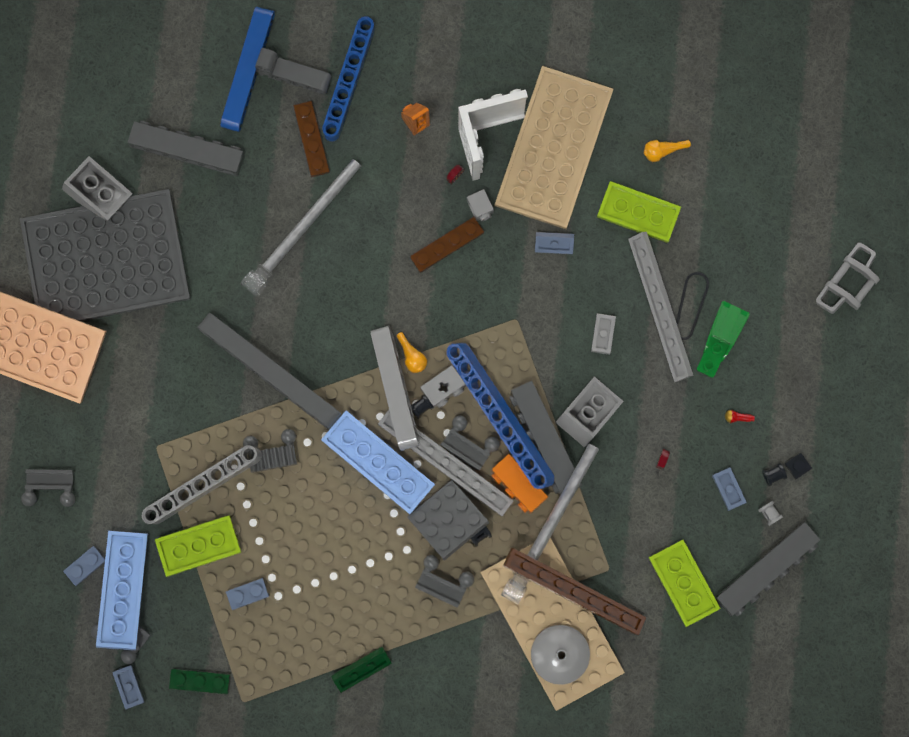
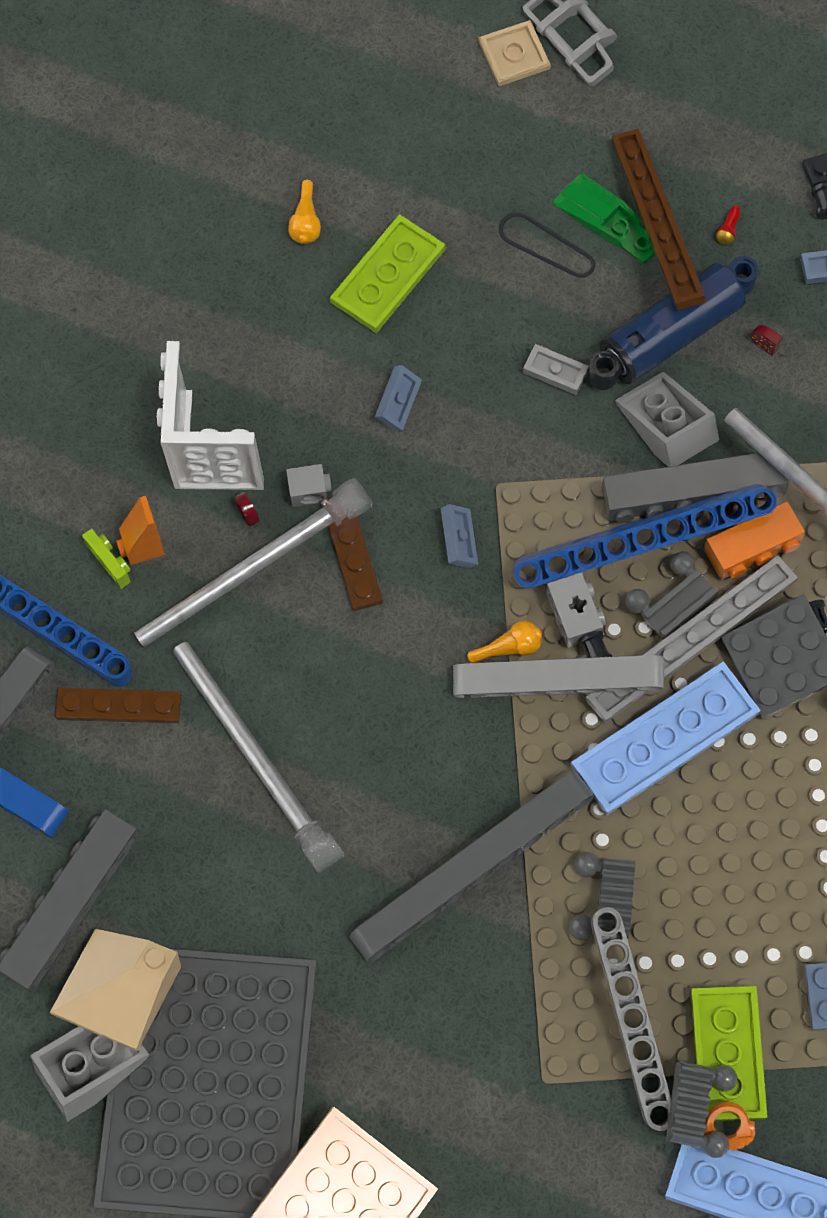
camera: 70 degrees left, 10 degrees down
(140, 191) = (118, 987): none -> tan slope
(151, 565) = (744, 1133): none -> orange piece
(160, 530) = (690, 1104): none -> dark grey gear
(402, 97) = (101, 549): none -> lime plate
(471, 230) = (347, 501): none -> flat silver piece
(473, 305) = (459, 536): none -> sand blue plate
(554, 147) = (255, 361): tan plate -> none
(654, 397) = (665, 331): none -> dark blue piece
(660, 307) = (538, 281): light grey plate -> none
(721, 368) = (658, 220): none -> reddish brown plate
(824, 246) = (514, 53): none -> tan tile

